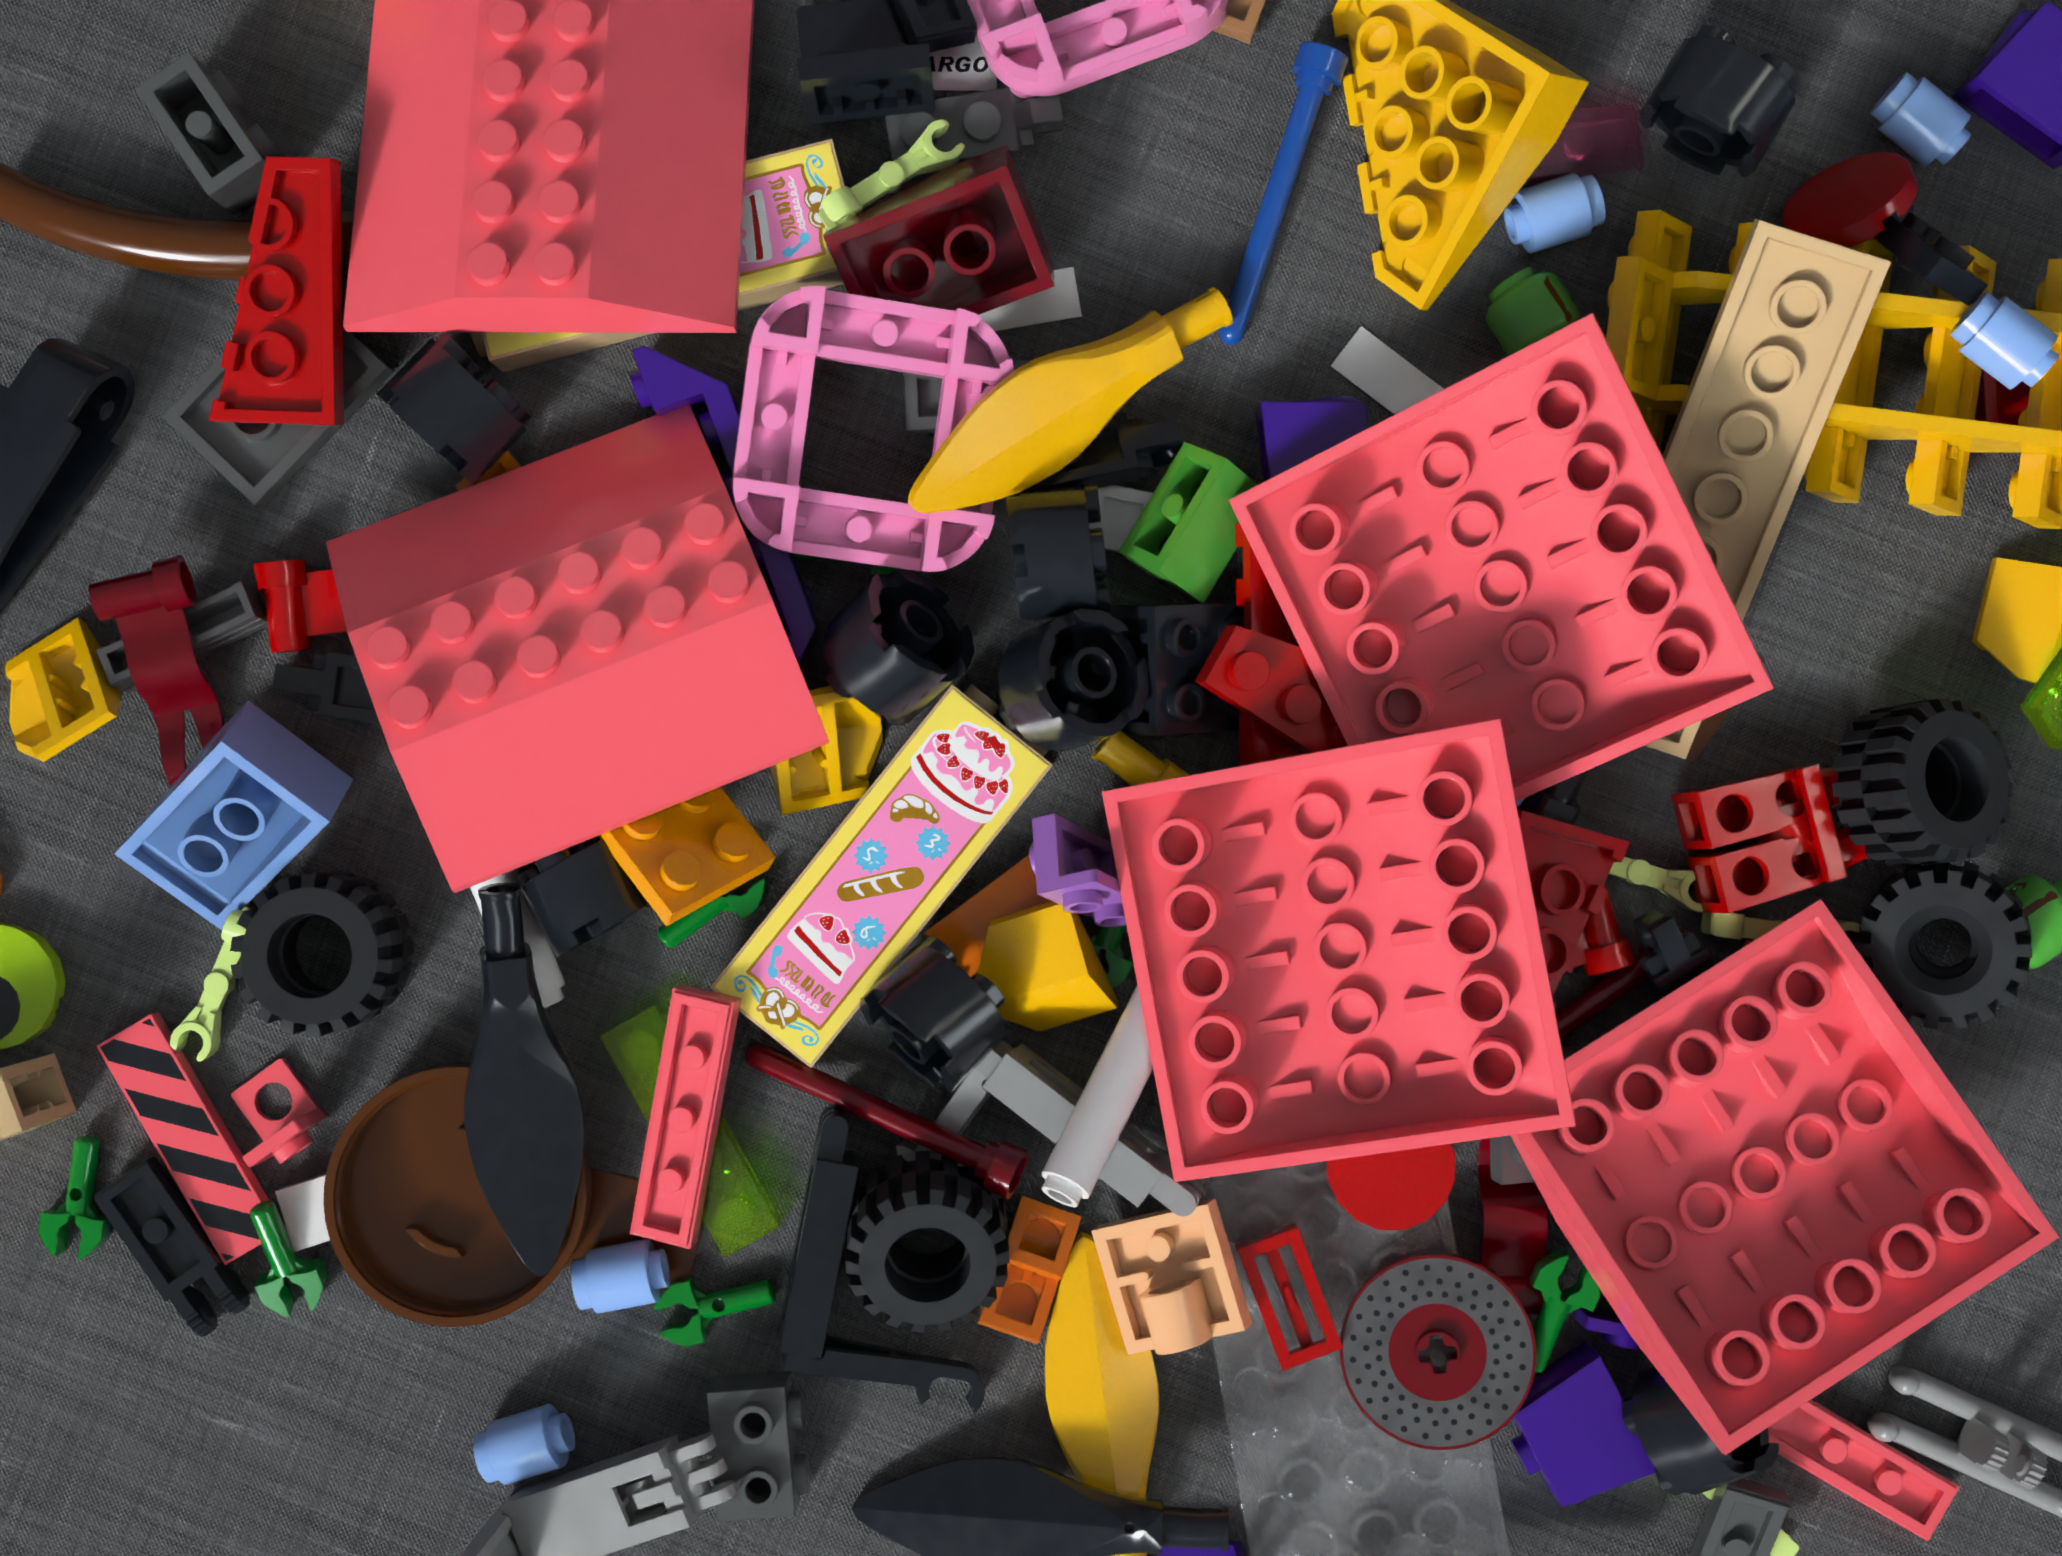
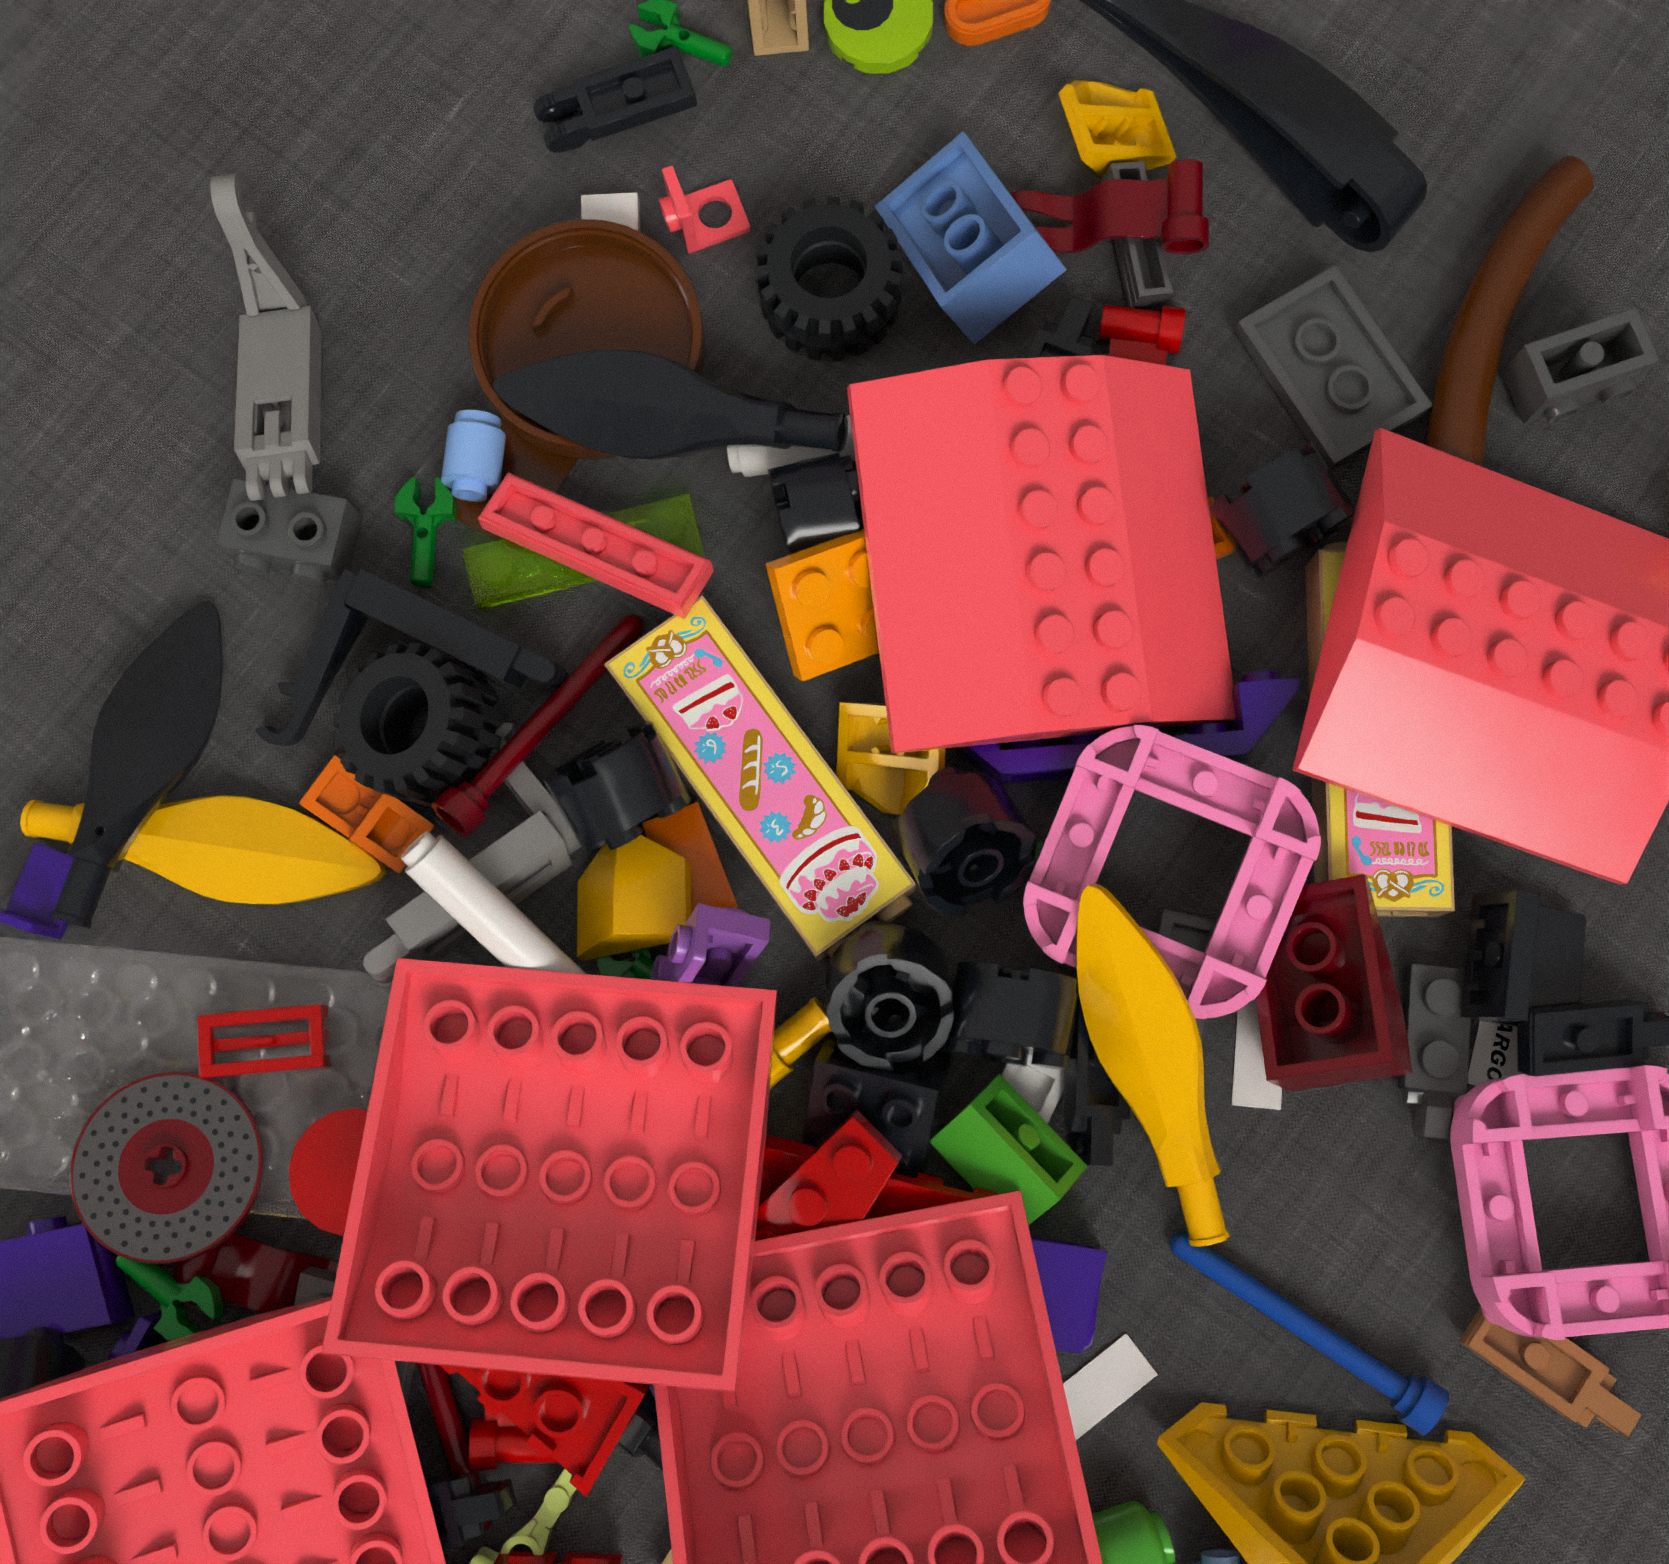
camera: 110 degrees right, 10 degrees down
(187, 1133) = (704, 138): coral tile -> none
(217, 985) = (803, 176): yellowish green piece -> none
(284, 1263) = (571, 184): green bar -> none
(290, 312) = (1377, 381): red wing -> none
(524, 1445) = (355, 339): light blue brick -> none
(743, 905) = (771, 646): green bar -> none
(920, 159) = (1416, 988): yellowish green piece -> none
(1172, 1279) = (312, 937): light nougat plate -> none

